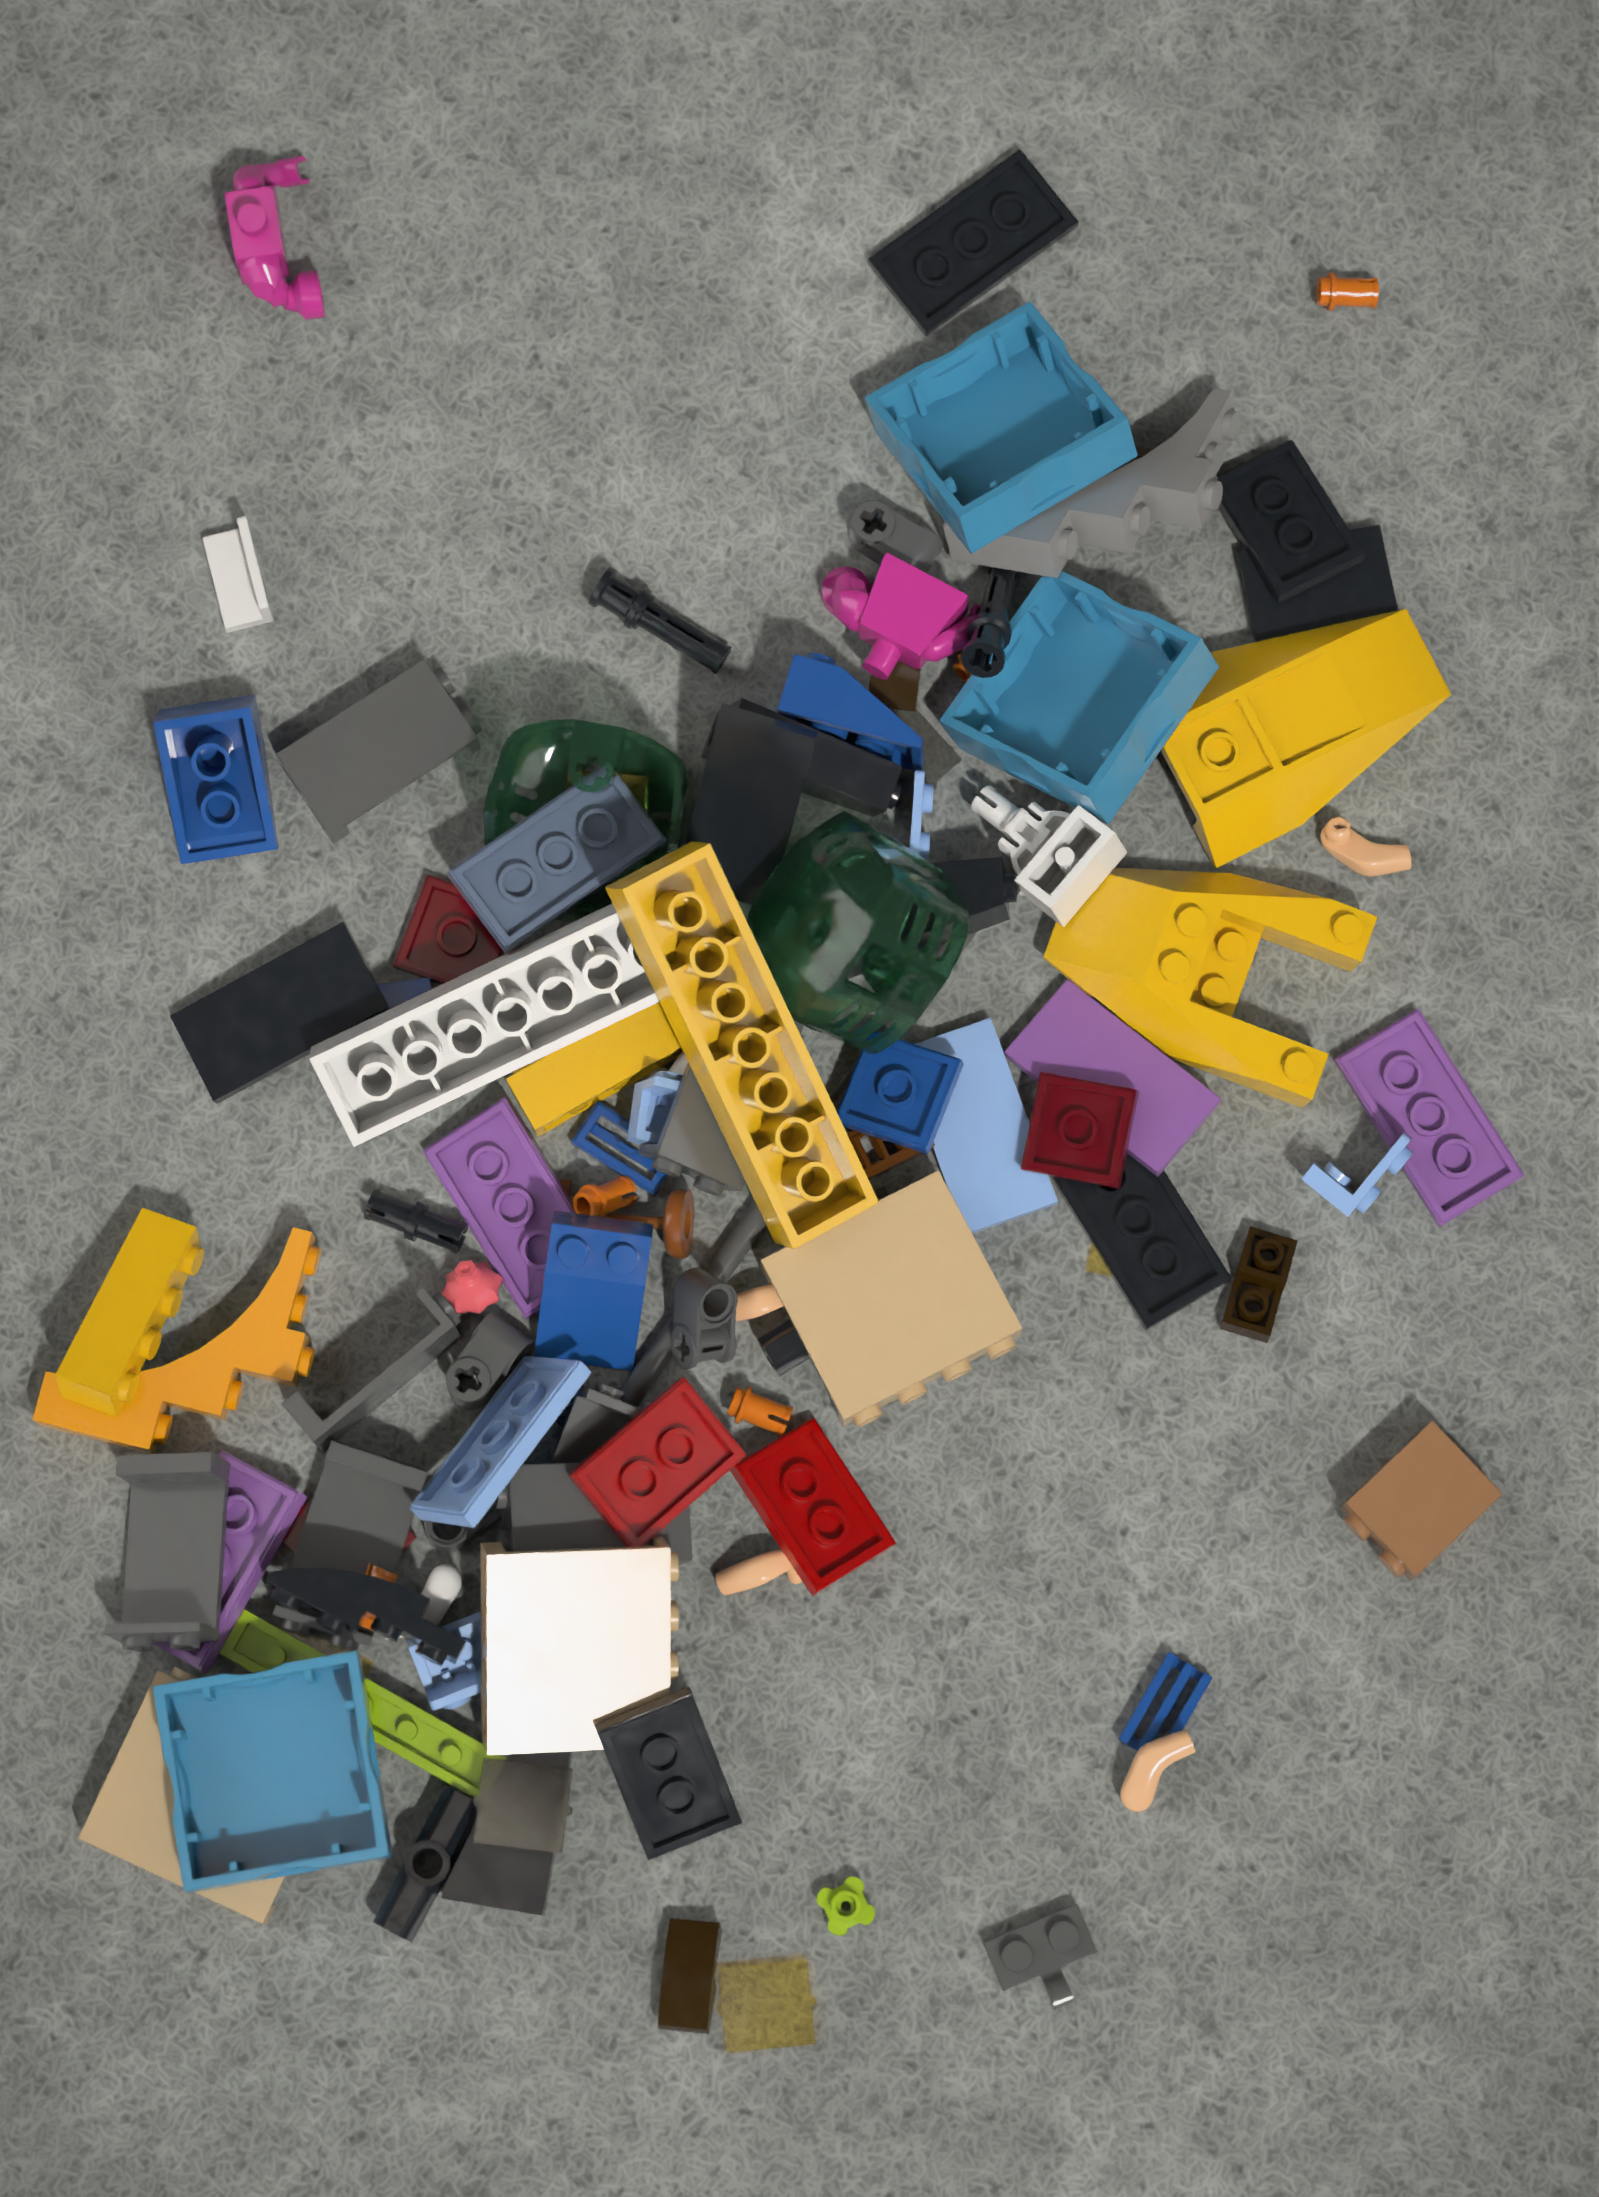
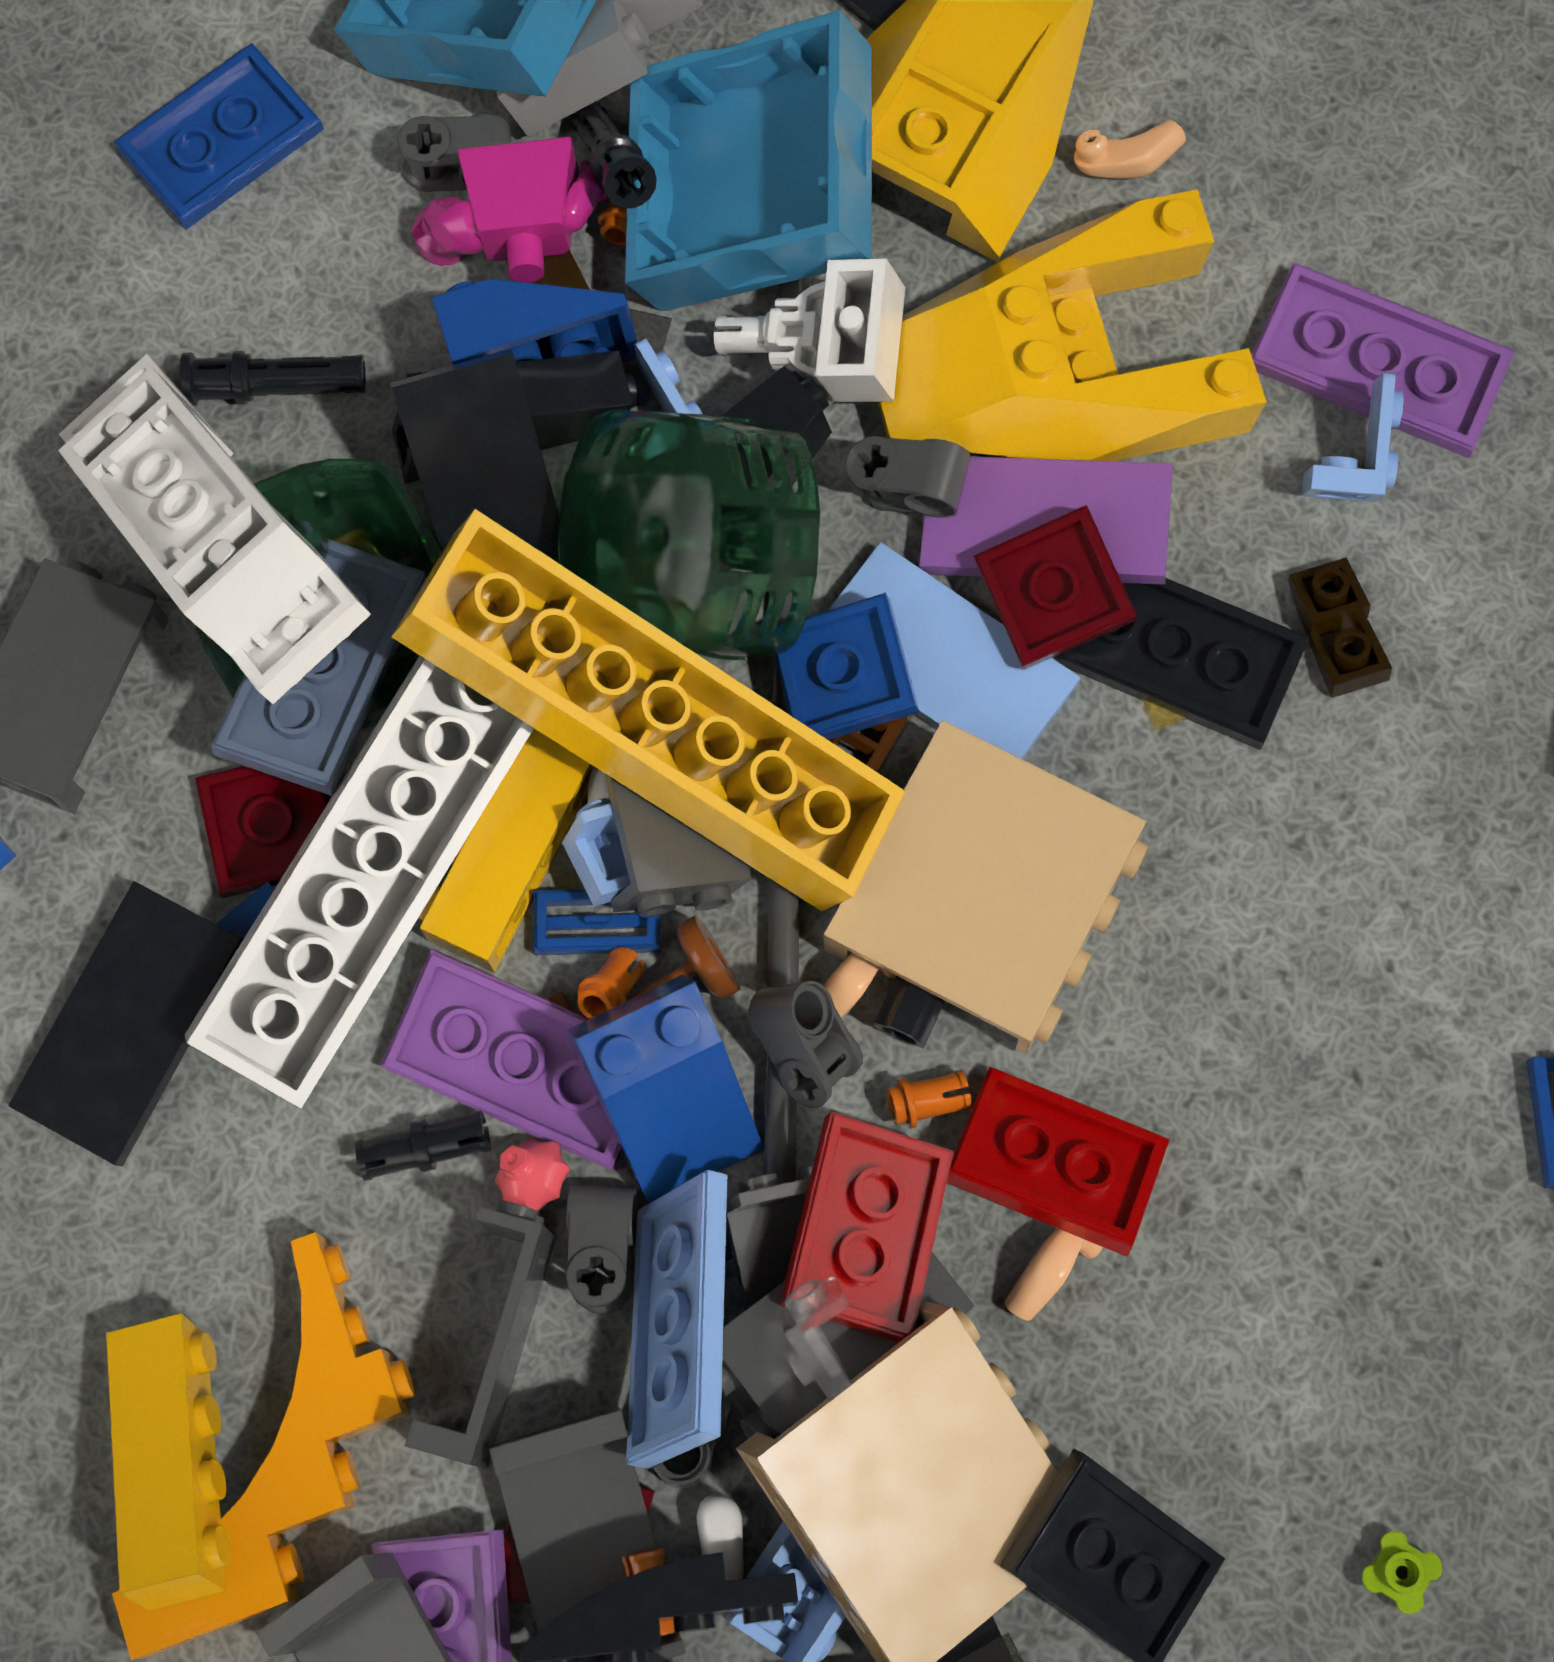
camera: 30 degrees left, 5 degrees down
(531, 717) = (209, 530): none -> white bracket
(566, 1516) = (811, 1352): none -> clear bracket
(739, 413) = (219, 136): none -> blue tile
(1041, 988) = (910, 474): none -> dark grey piece

